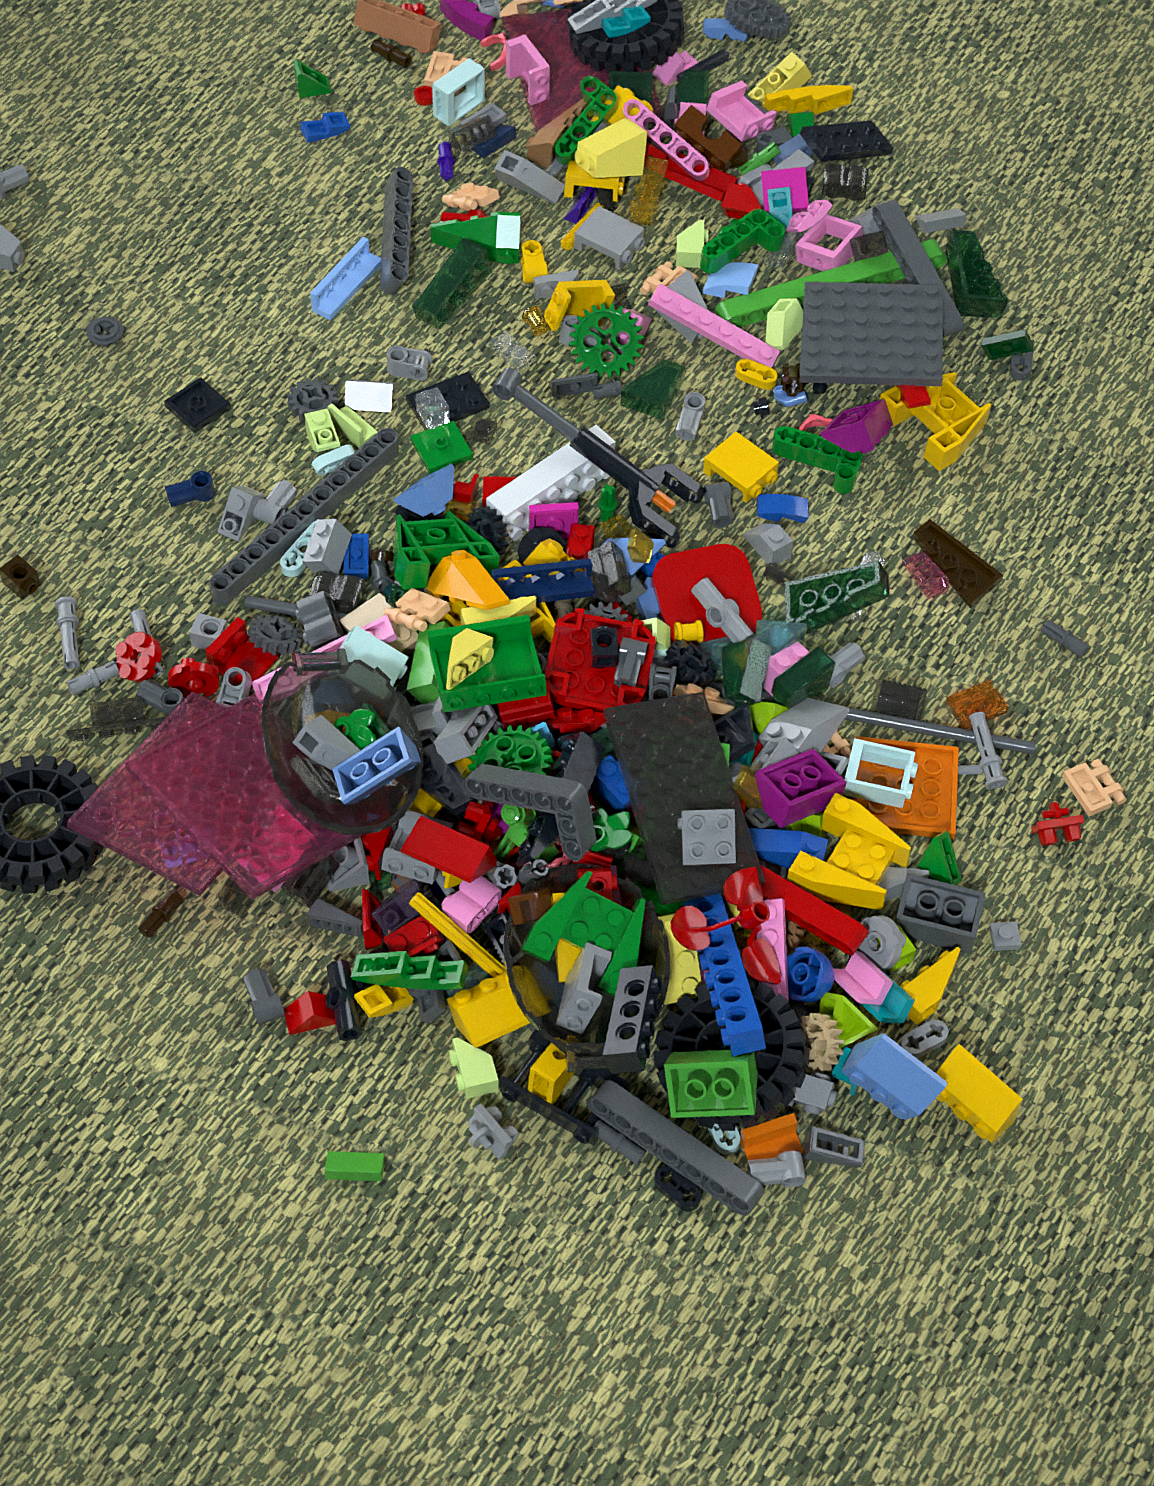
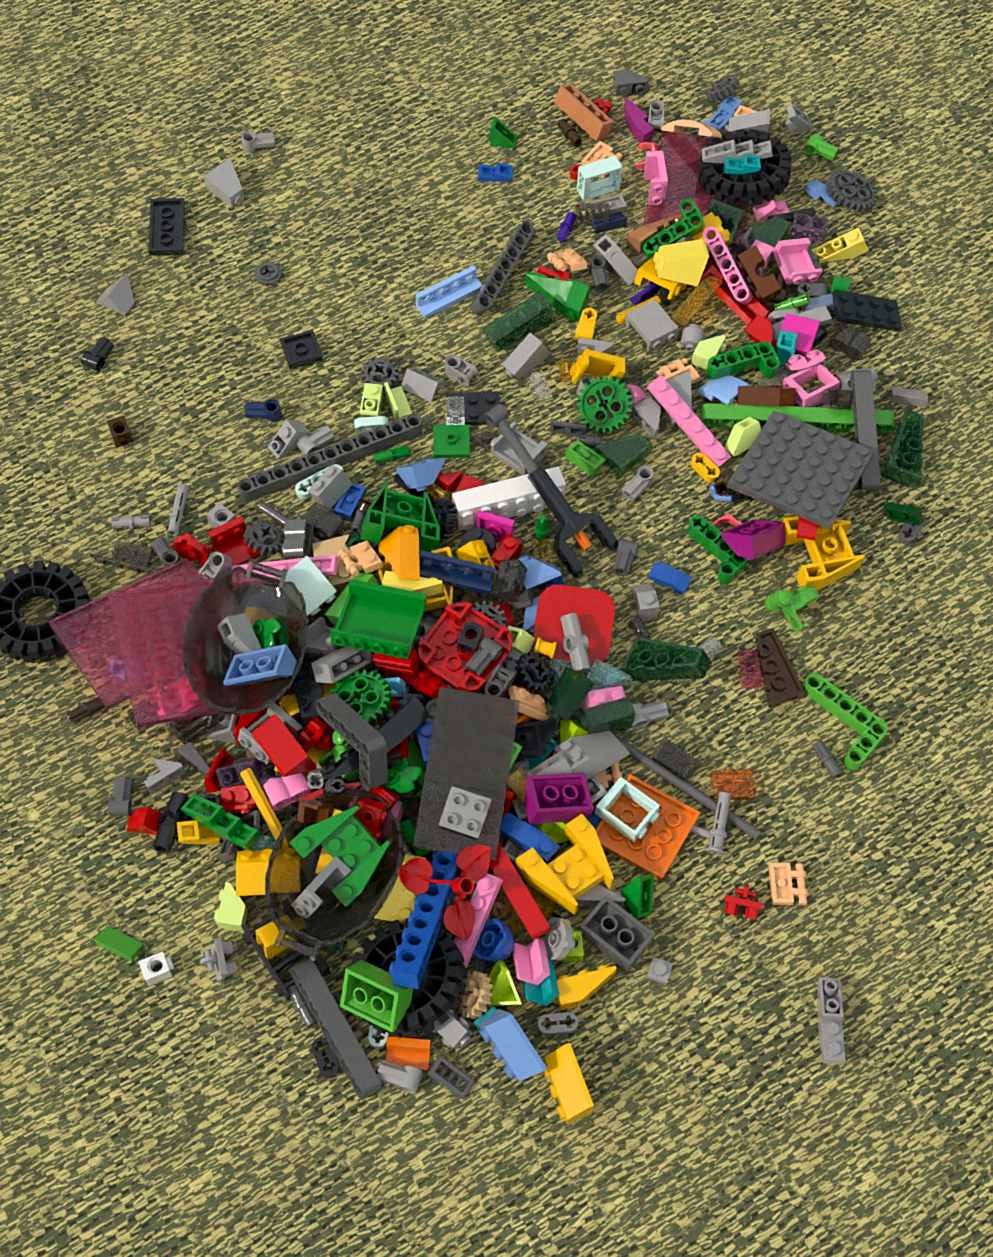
camera: 25 degrees right, 5 degrees up
(68, 622) = (134, 476): light grey pin -> none
(127, 656) = (164, 518): plate -> none
(303, 948) = (168, 773): none -> light grey slope
(377, 486) = (391, 454): none -> green axle
(418, 1184) = (149, 963): none -> white brick
(468, 654) = (366, 607): light yellow slope -> none
(481, 320) = (526, 357): none -> light grey slope
(514, 199) = (599, 273): none -> dark grey piece
(524, 430) = (504, 452): none -> light grey panel
(612, 411) = (585, 458): none -> bright green slope
(632, 1019) = (334, 927): black brick -> none
(639, 546) = (539, 571): clear yellow slope -> none
(661, 339) = (648, 415): none -> light grey slope
(664, 235) = (692, 336): none -> light grey head
(731, 70) = (809, 227): none -> brick
(742, 465) = (655, 535): yellow panel -> none
(761, 407) = (695, 494): black plate -> none
(786, 269) = (766, 395): none -> reddish brown slope
(812, 98) = (860, 268): yellow slope -> none
(935, 484) = (789, 602): none -> bright green piece
(1065, 579) = (849, 717): none -> bright green beam

